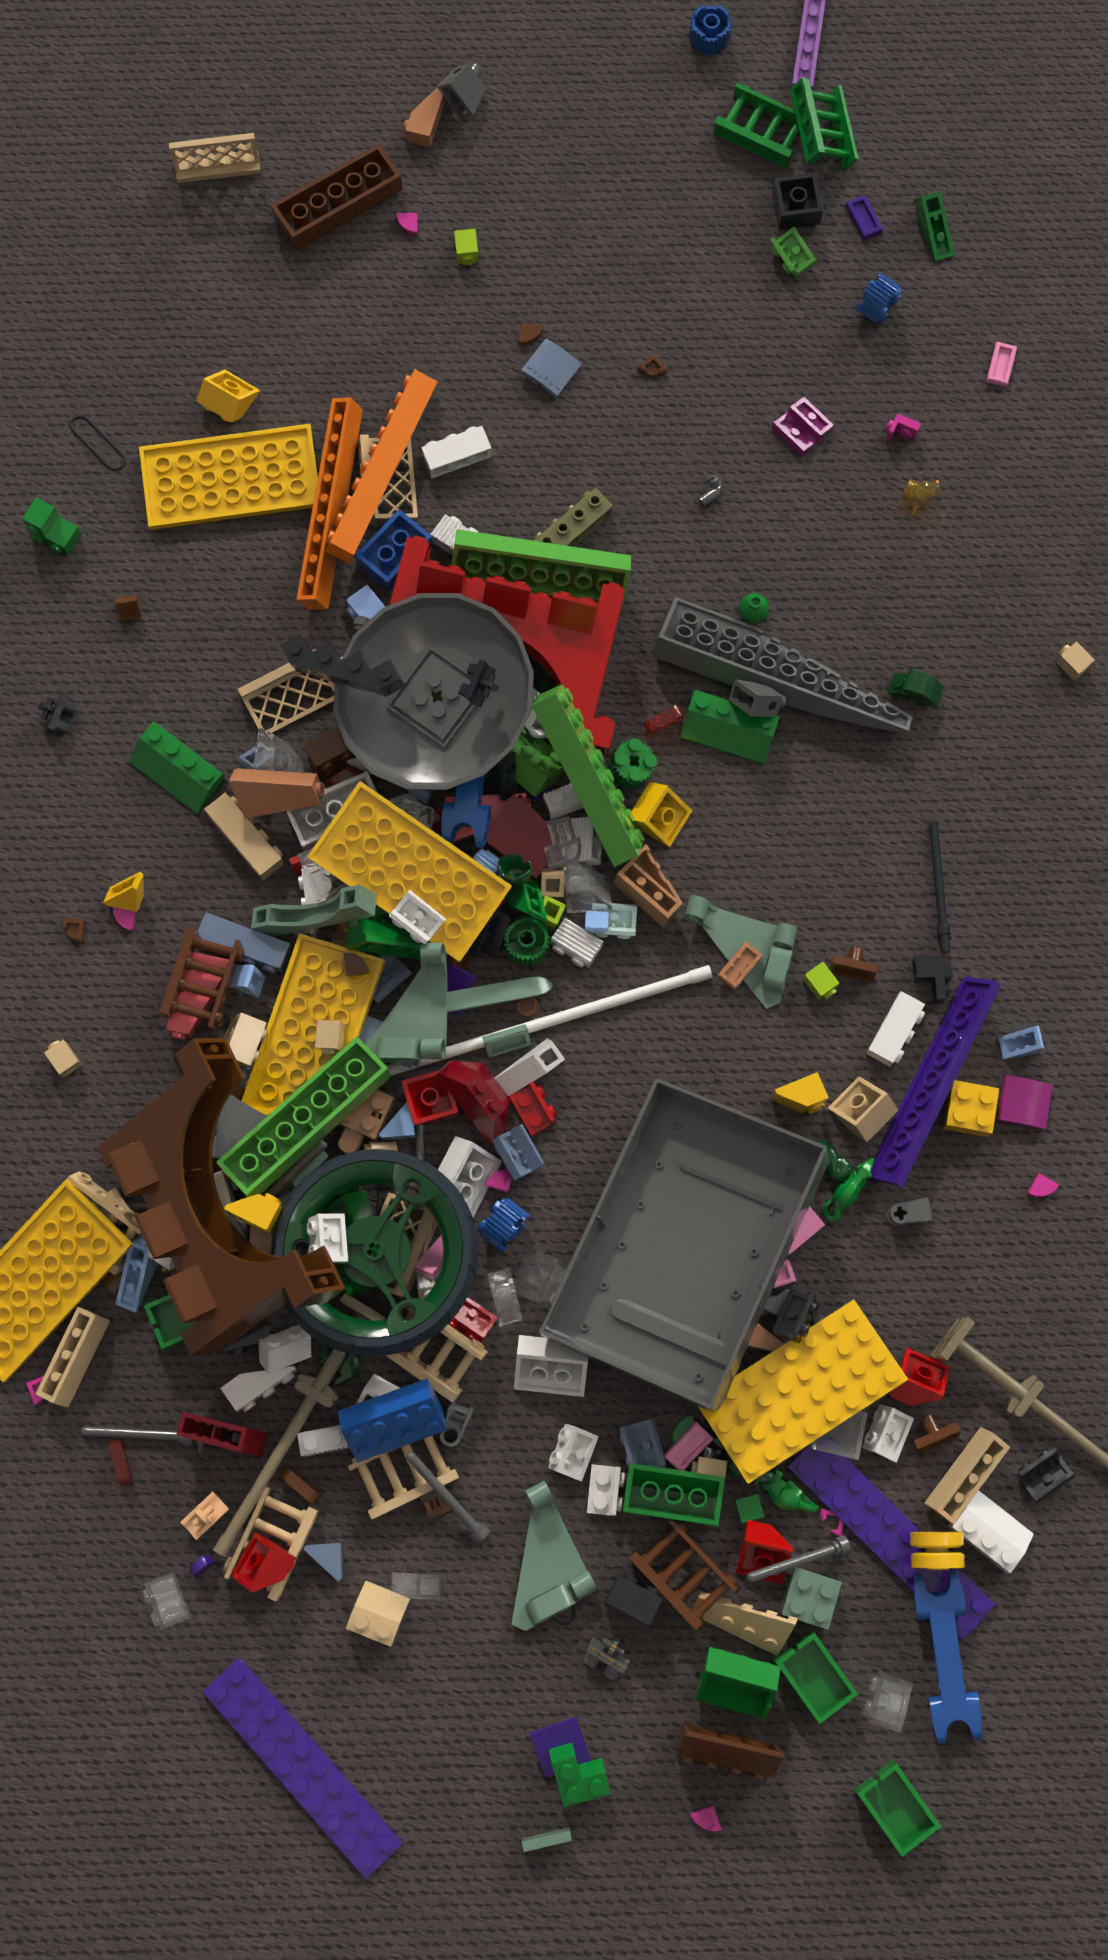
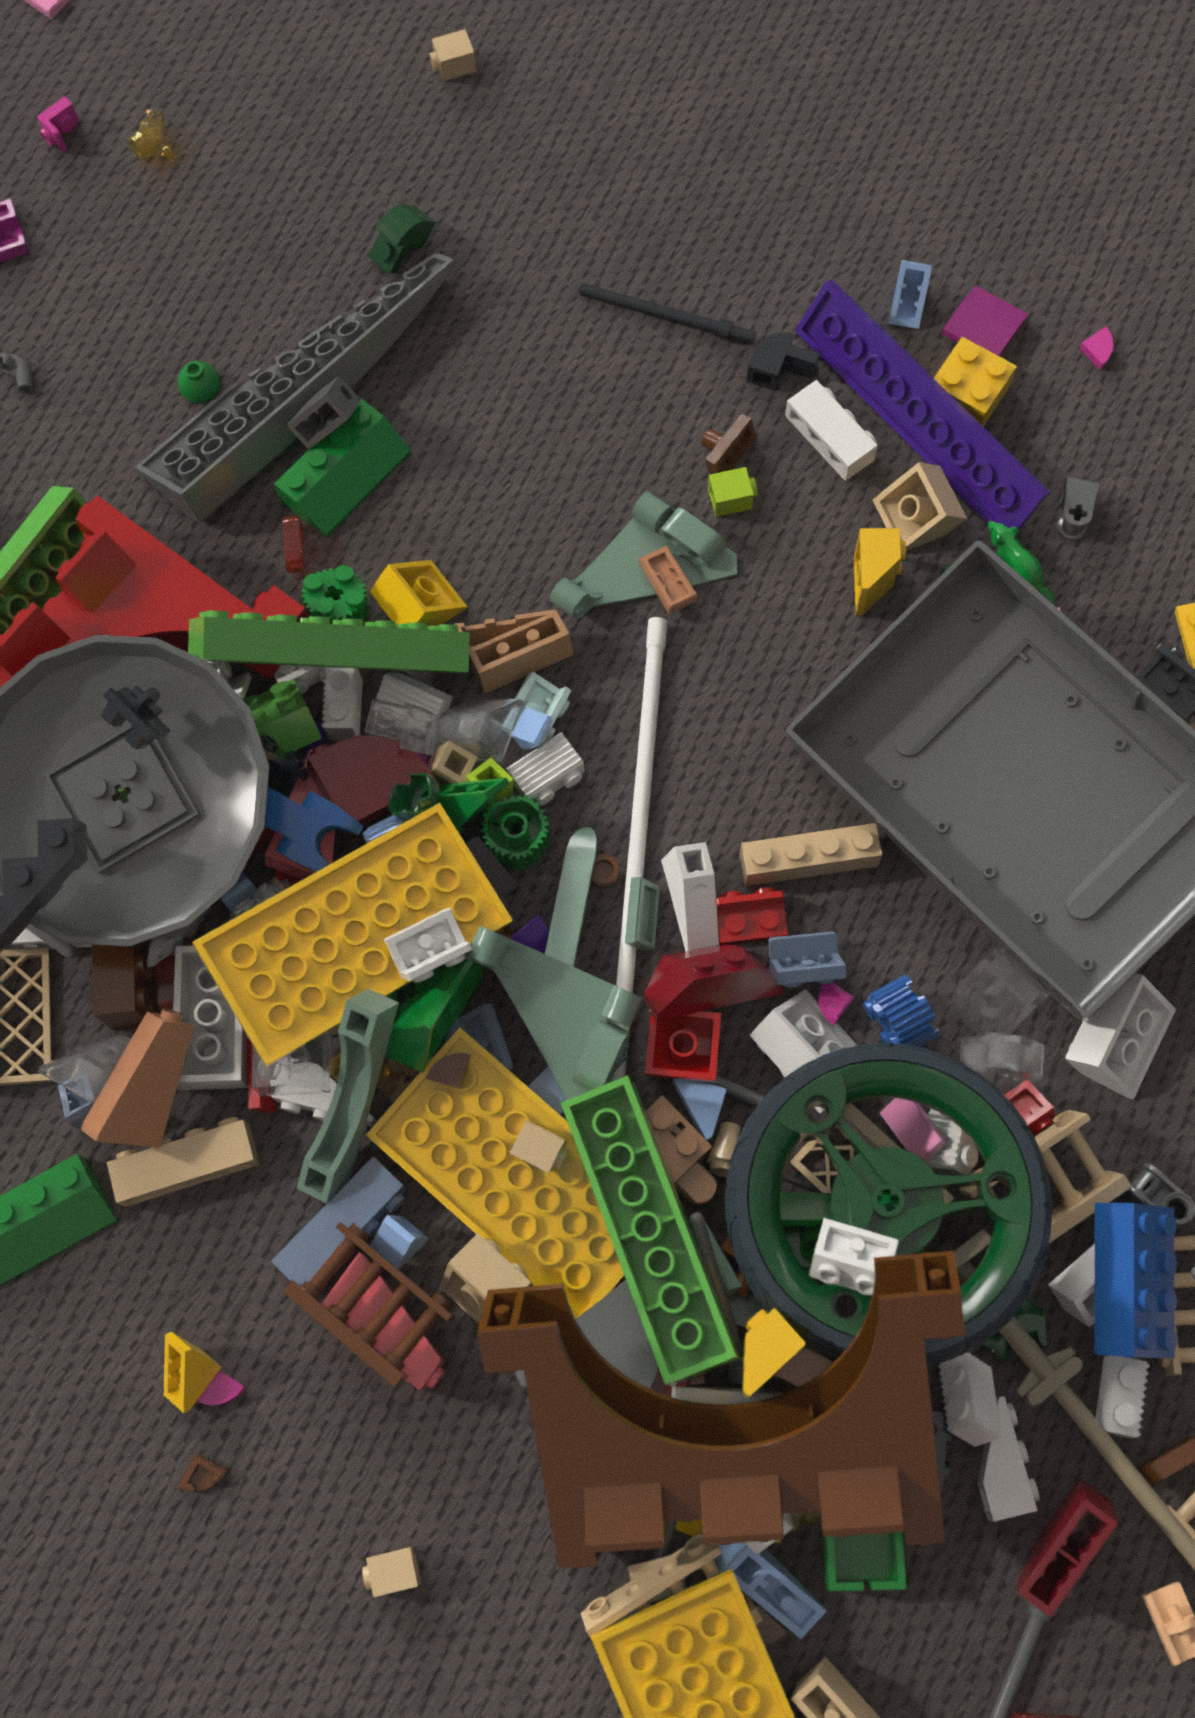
camera: 60 degrees left, 5 degrees down
(587, 1128) = (810, 854): none -> tan brick

